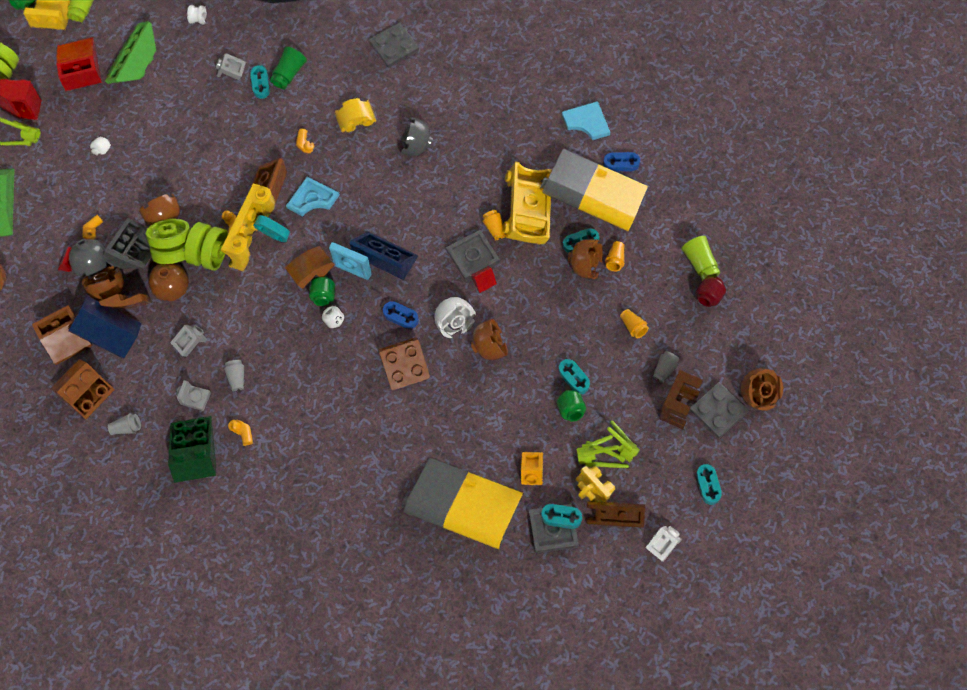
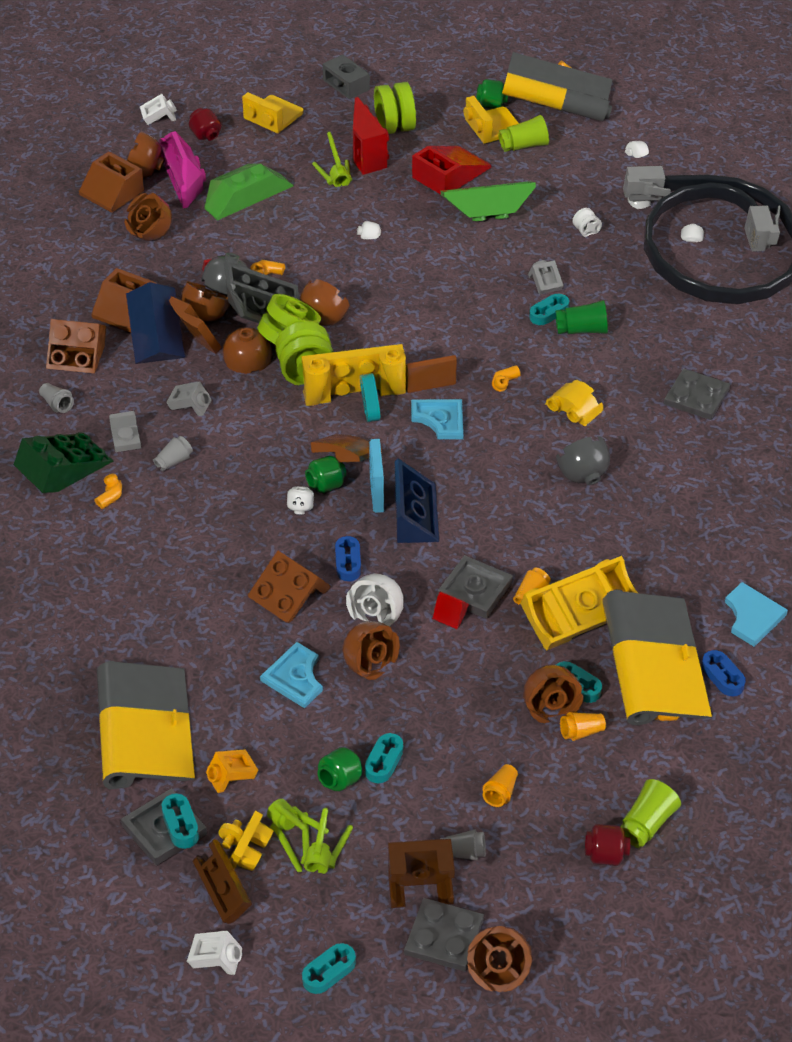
camera: 55 degrees right, 20 degrees down
(476, 395) = (294, 675): none -> medium azure tile

